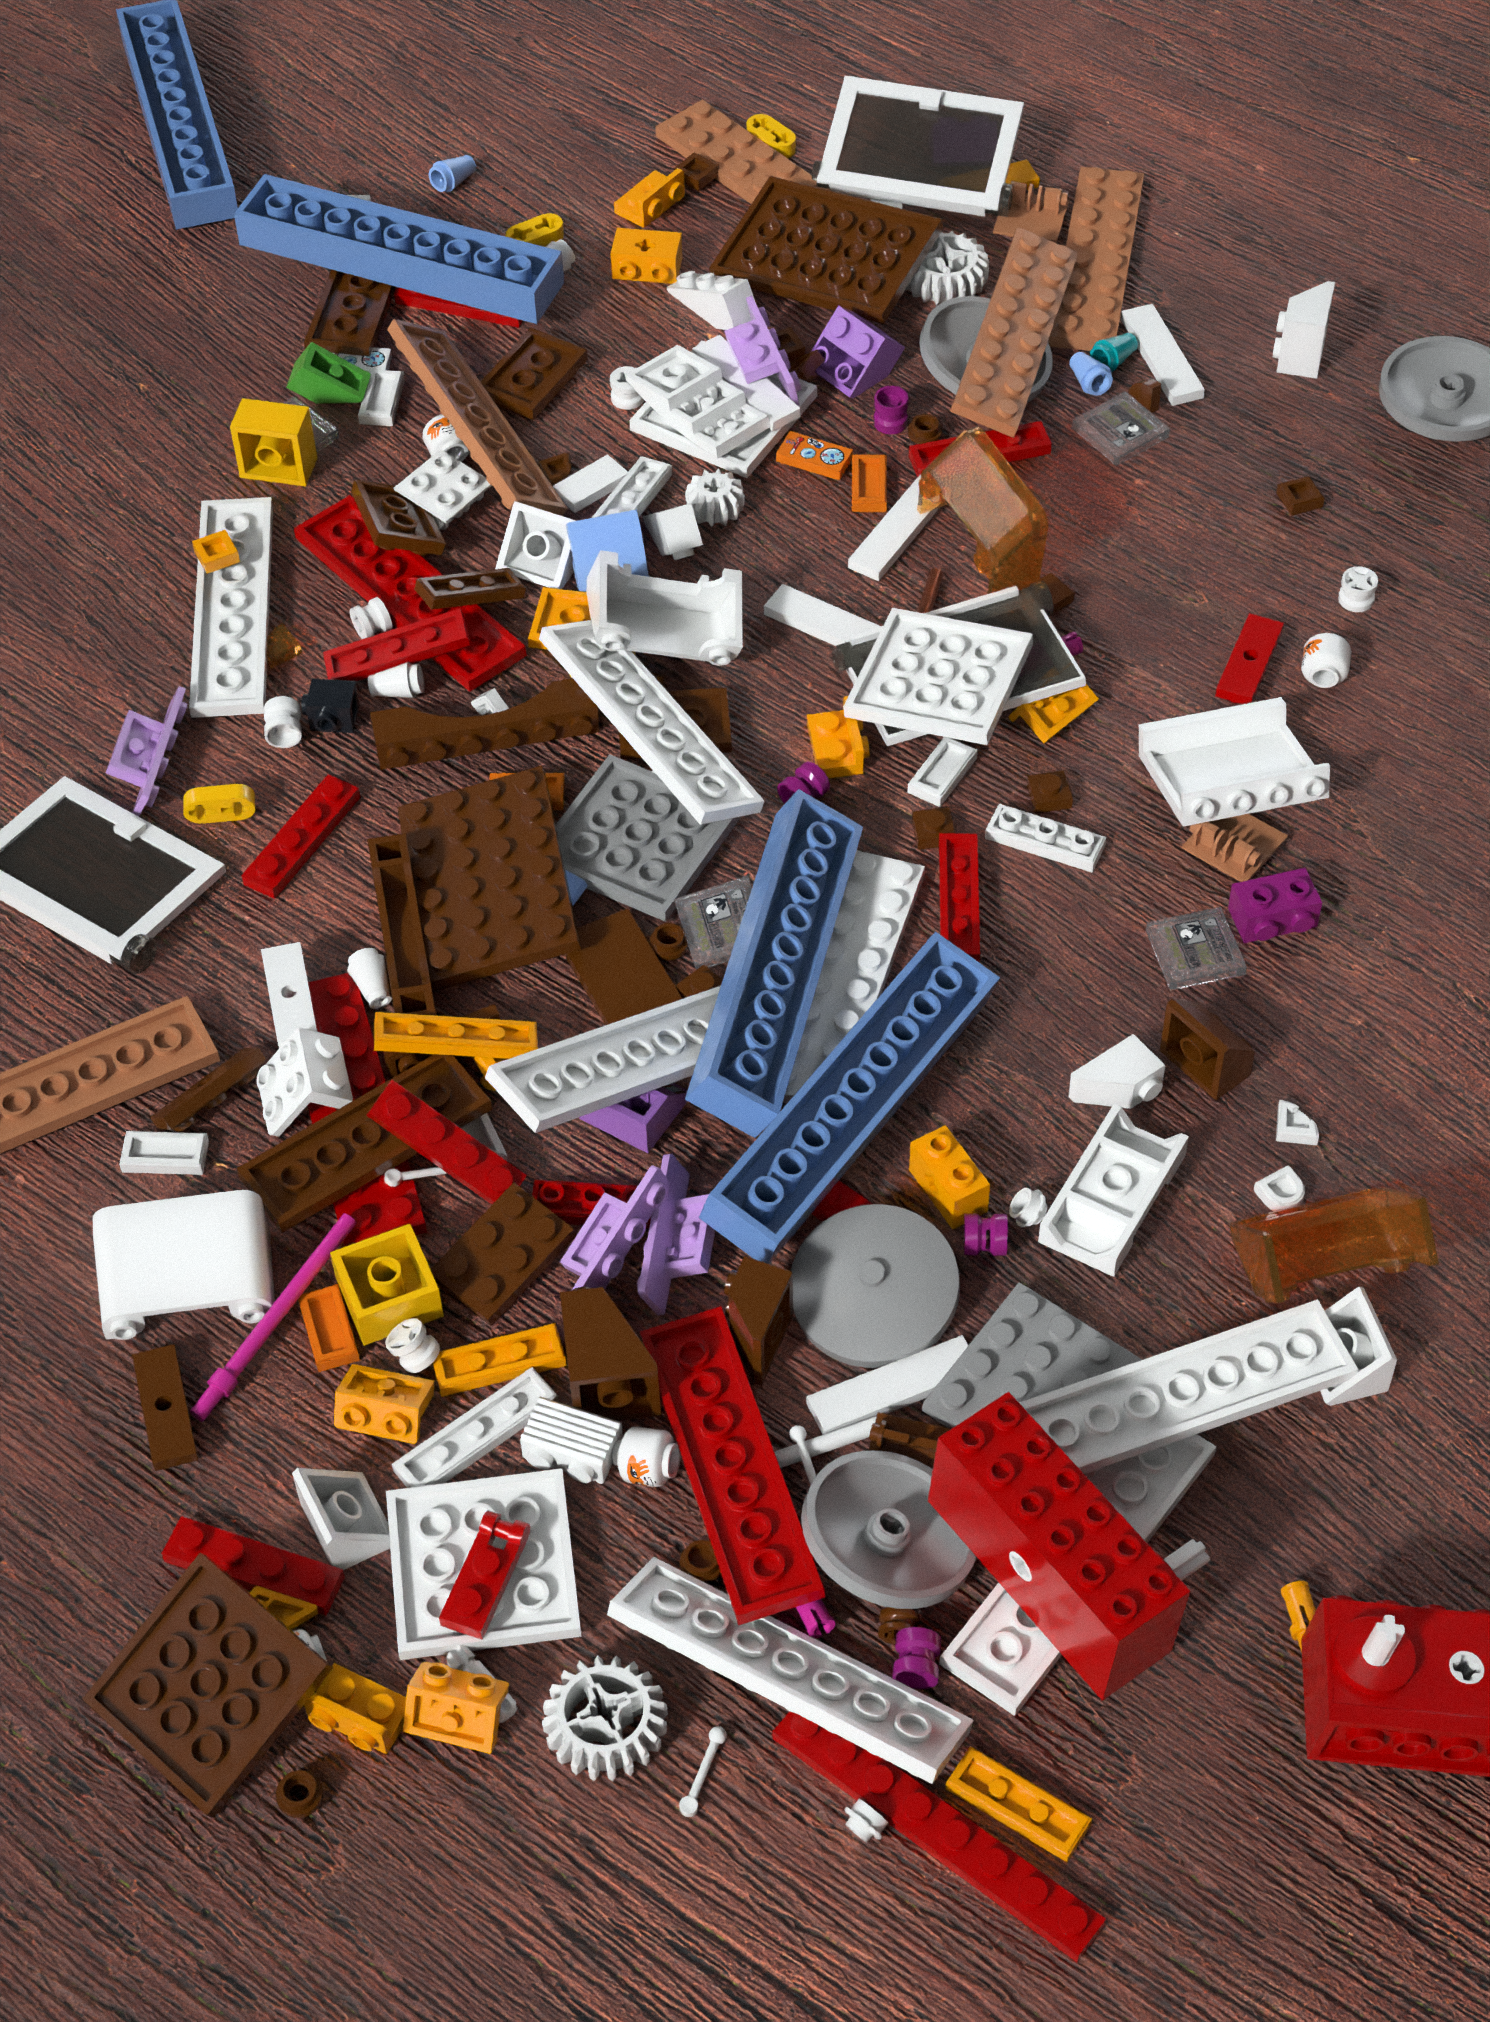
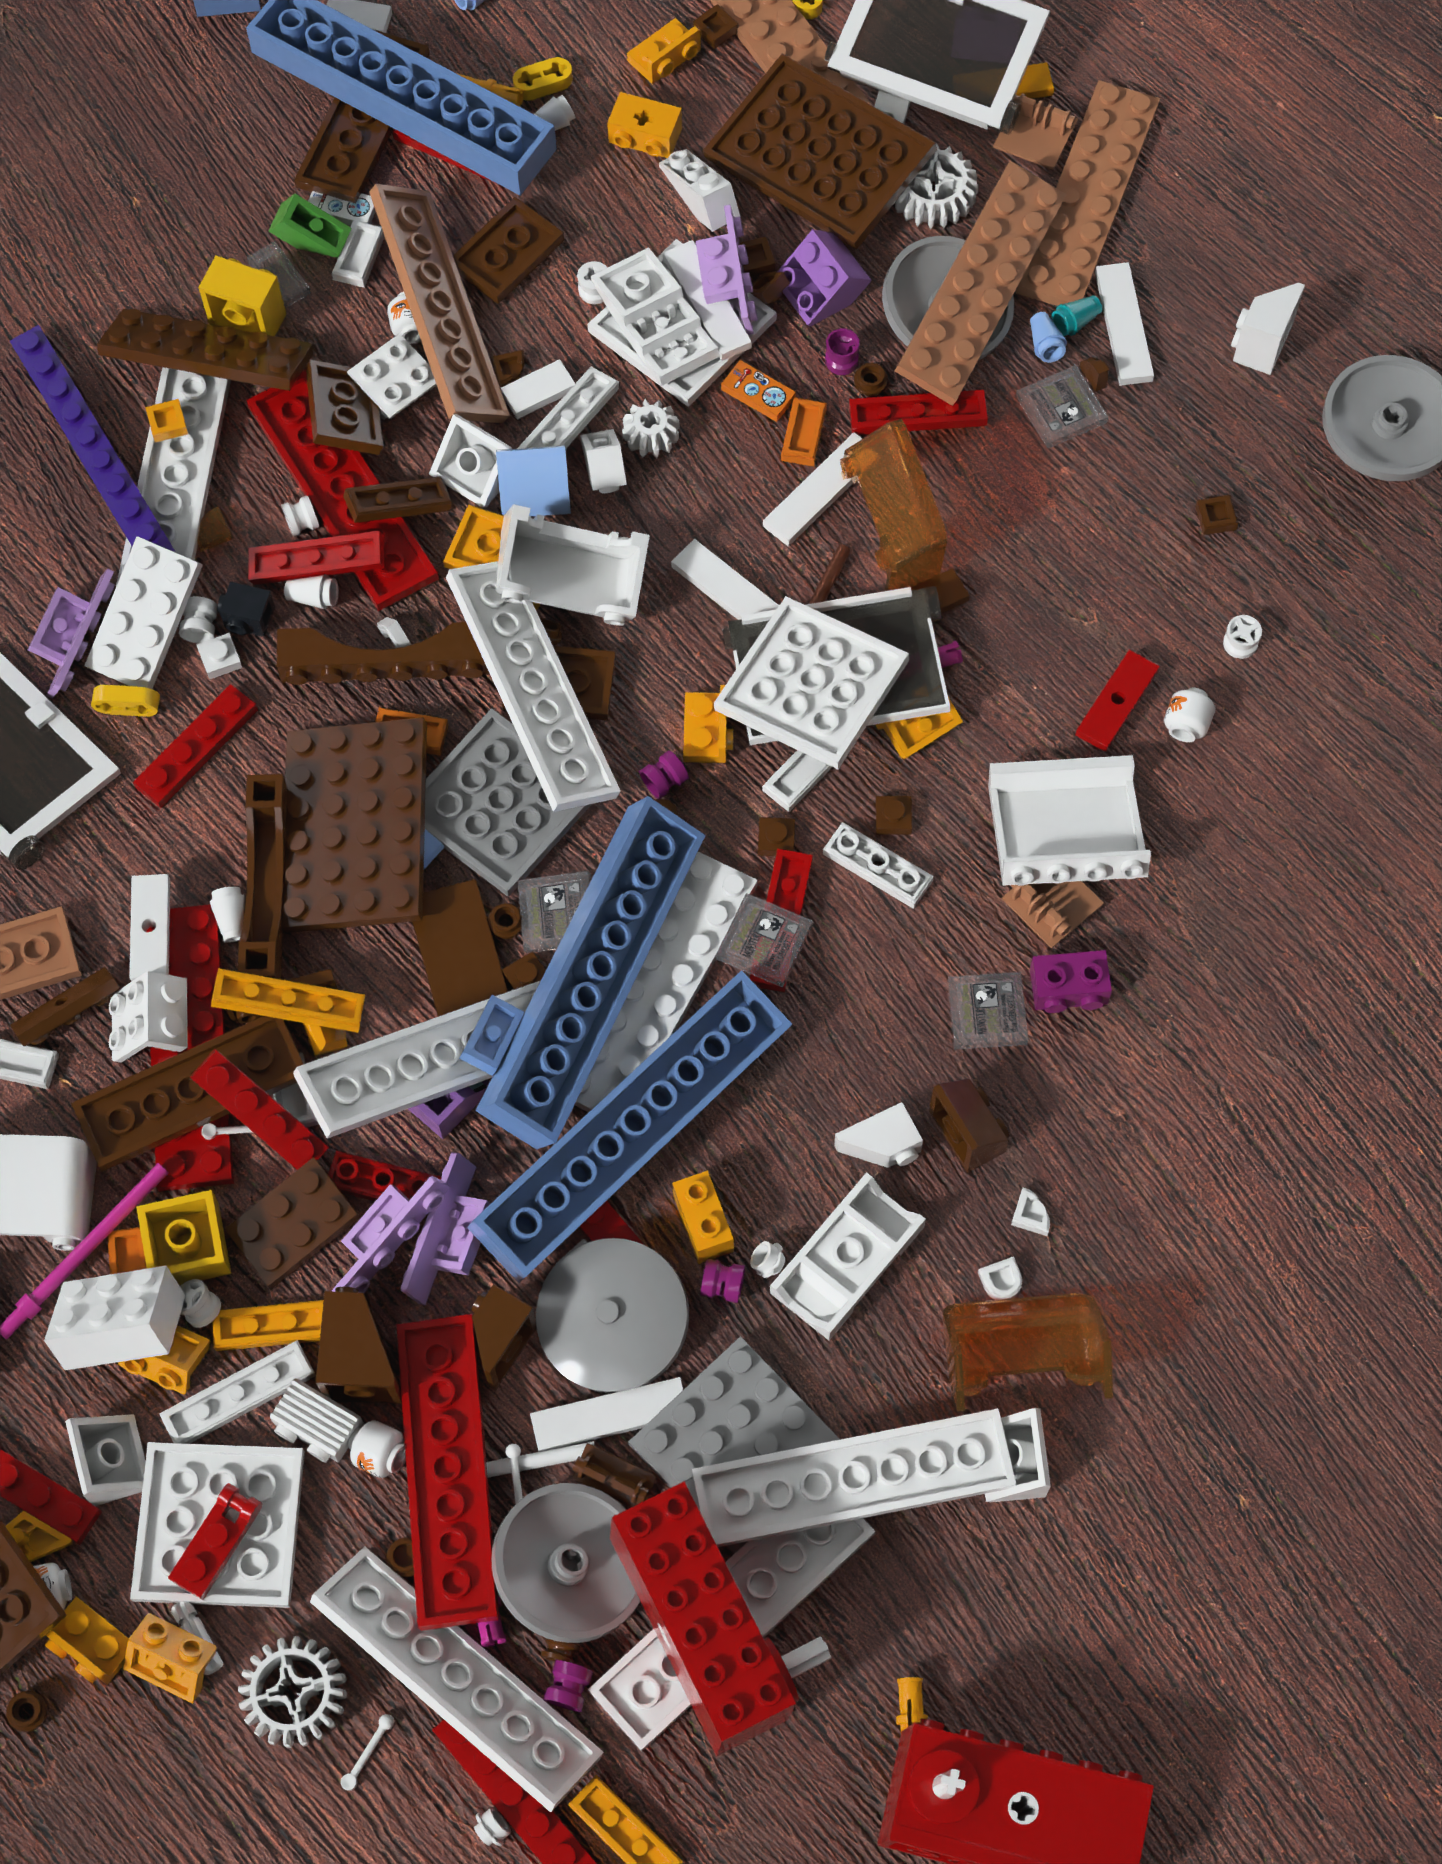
camera: 10 degrees right, 15 degrees up
(150, 597) = (88, 438): none -> dark purple plate
(225, 717) = (143, 614): none -> white plate
(243, 490) = (205, 349): none -> reddish brown plate
(310, 753) = (219, 656): none -> white plate
(328, 1363) = (115, 1318): none -> white brick
(685, 1027) = (492, 1035): none -> medium blue plate
(950, 908) = (764, 940): none -> clear tile

